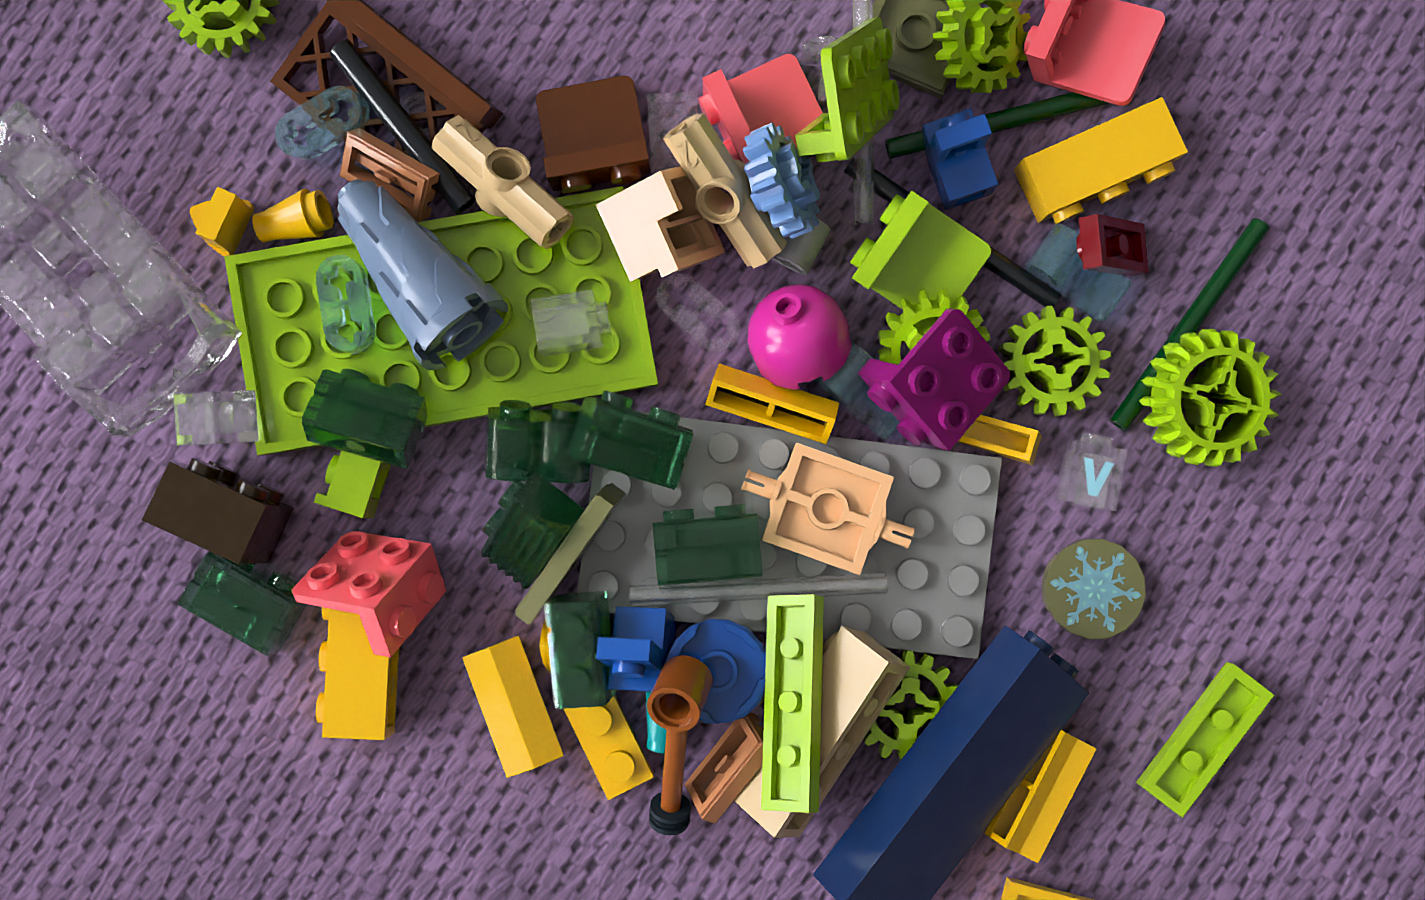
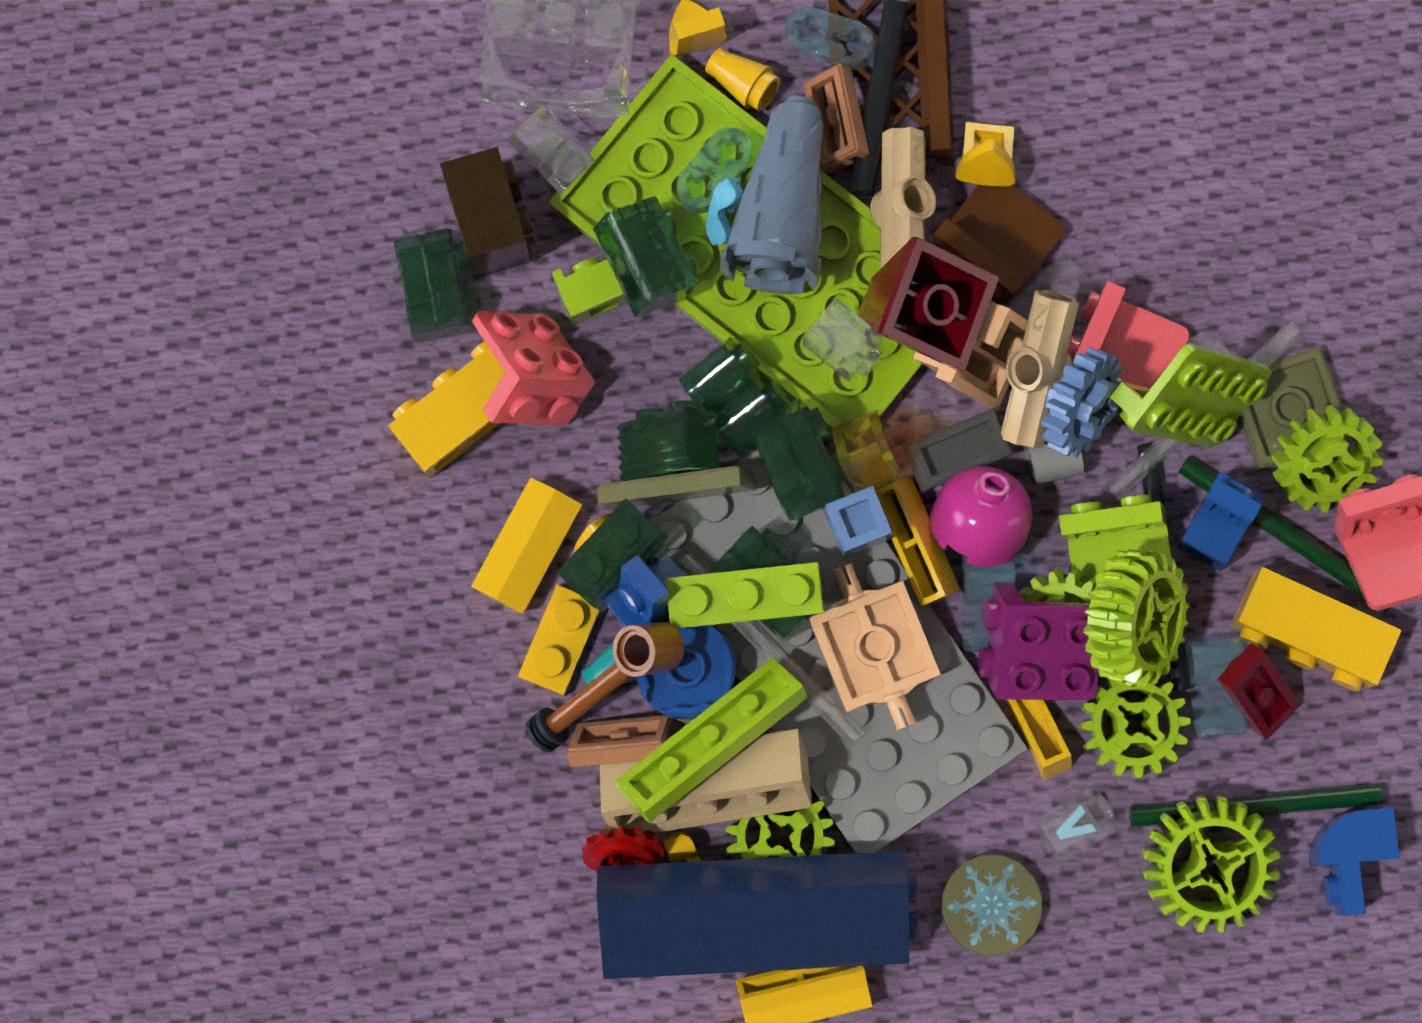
camera: 55 degrees right, 5 degrees down
(375, 318) = (724, 199): none -> medium azure piece
(521, 84) = (987, 155): none -> yellow tile
(600, 229) = (929, 302): none -> dark red slope
(672, 383) = (866, 452): none -> clear yellow slope
(703, 578) = (745, 595): none -> lime plate
(721, 437) = (857, 521): none -> medium blue brick
(728, 309) = (956, 448): none -> dark grey tile
(815, 839) = (622, 847): none -> red gear
(849, 785) = (681, 848): none -> yellow hand
(984, 288) = (1136, 617): none -> lime gear
(1280, 281) = (1345, 843): none -> blue brick

